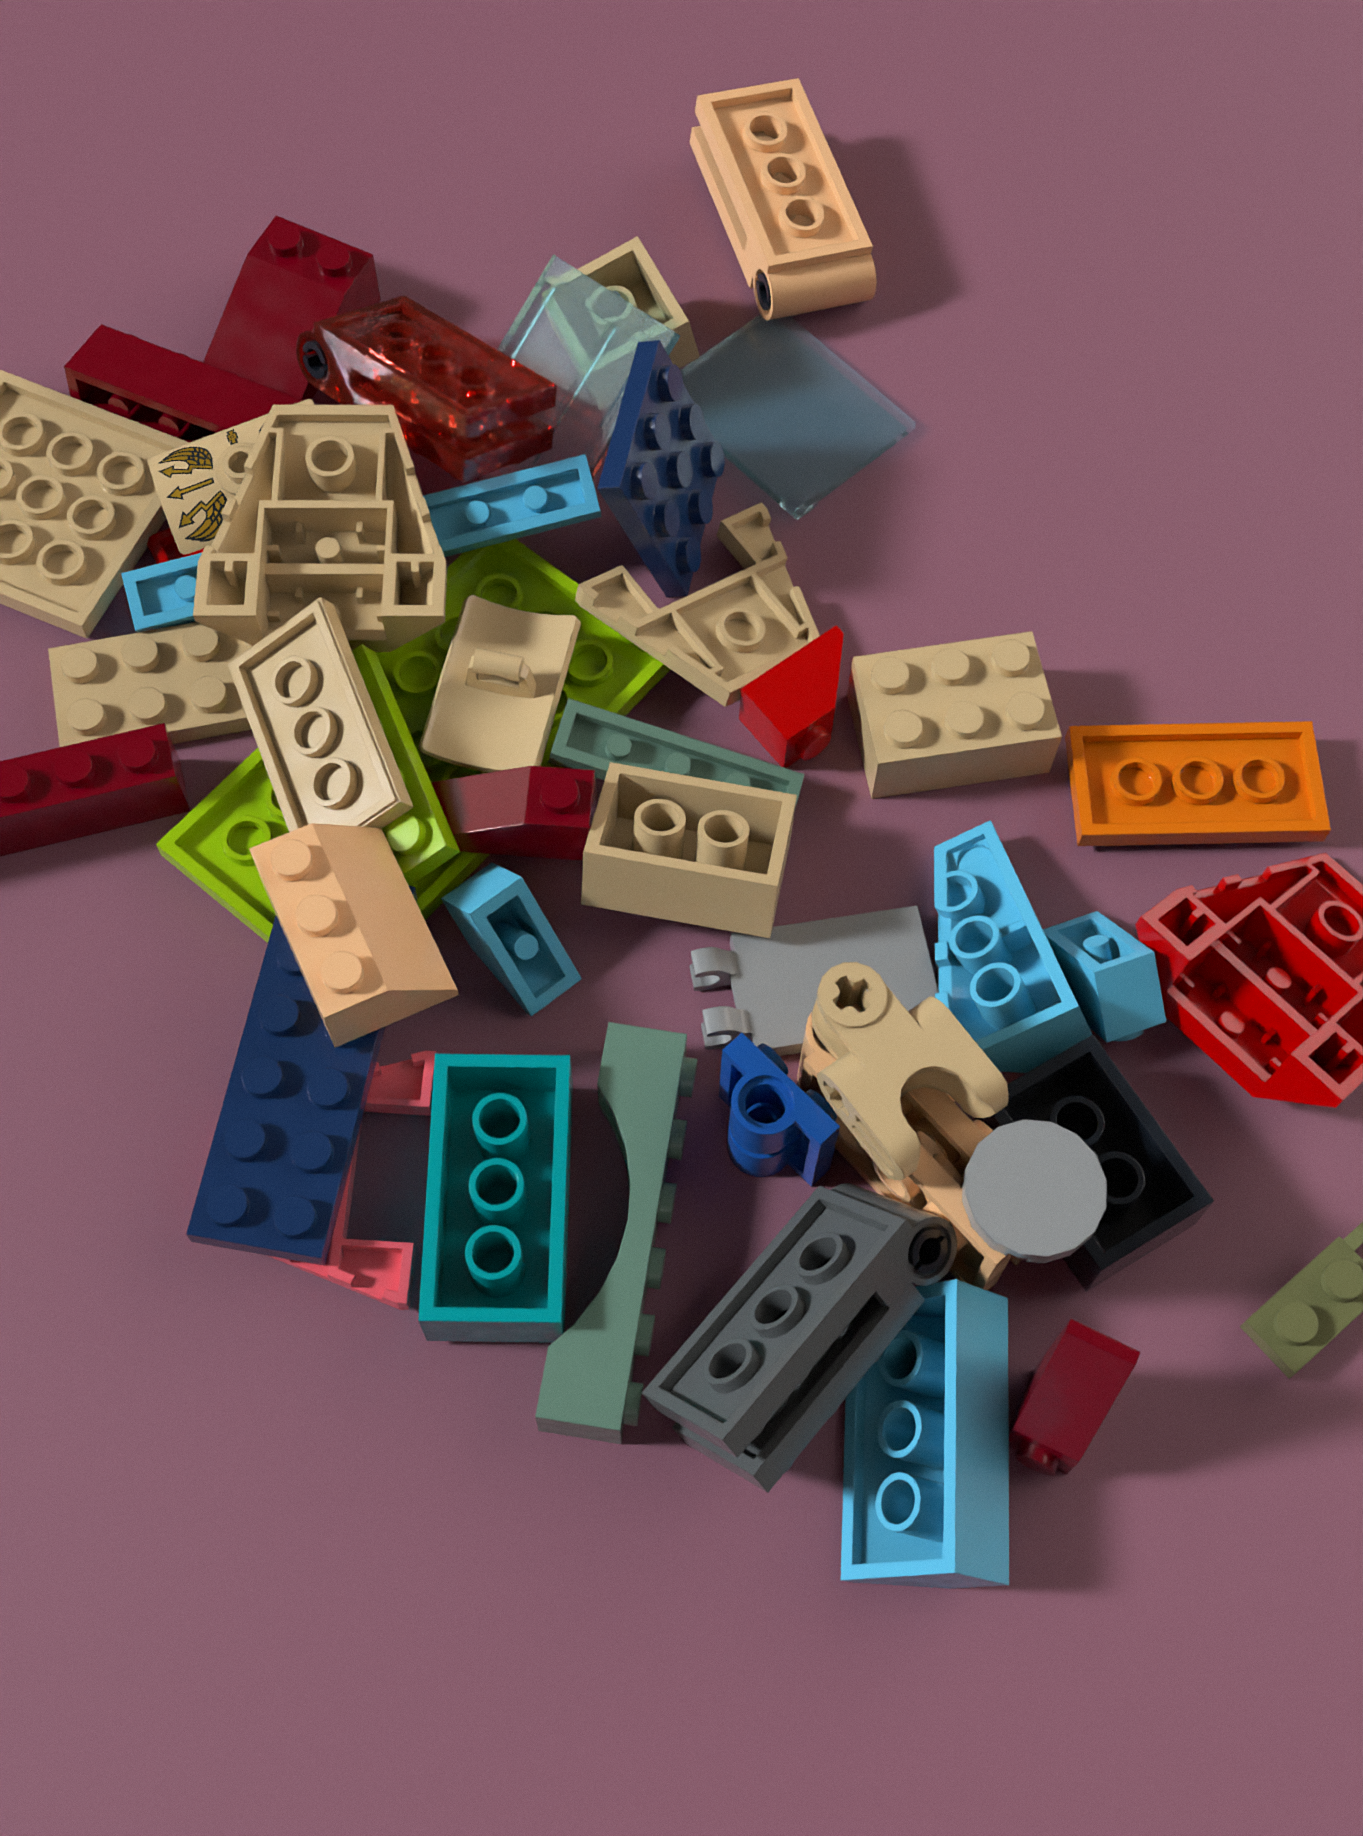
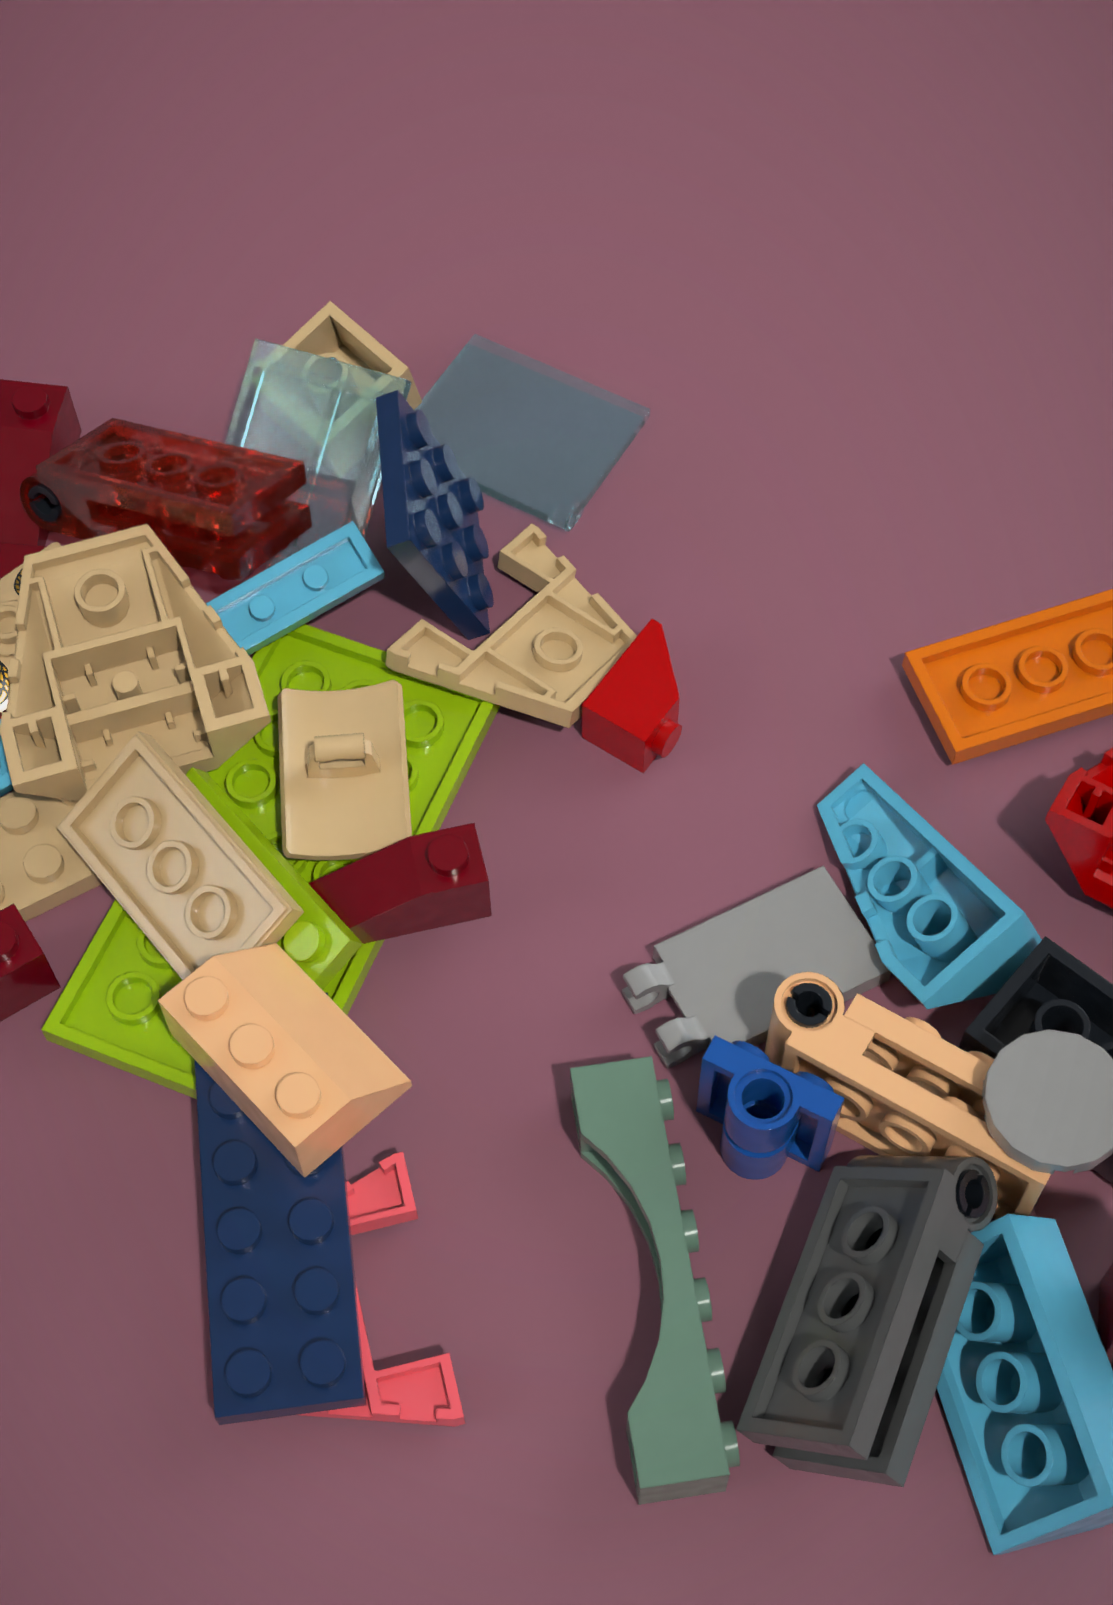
camera: 15 degrees left, 5 degrees down
(497, 1199) = (523, 1280): teal brick -> none
(512, 936) = (438, 1013): medium azure slope -> none
(595, 737) = (544, 800): sand green plate -> none
(688, 849) = (589, 875): tan brick -> none
(782, 199) = (451, 234): light nougat hinge -> none
(890, 1053) = (866, 1011): tan piece -> none
(952, 714) = (790, 673): tan brick -> none
(1109, 976) = (1038, 874): medium azure slope -> none

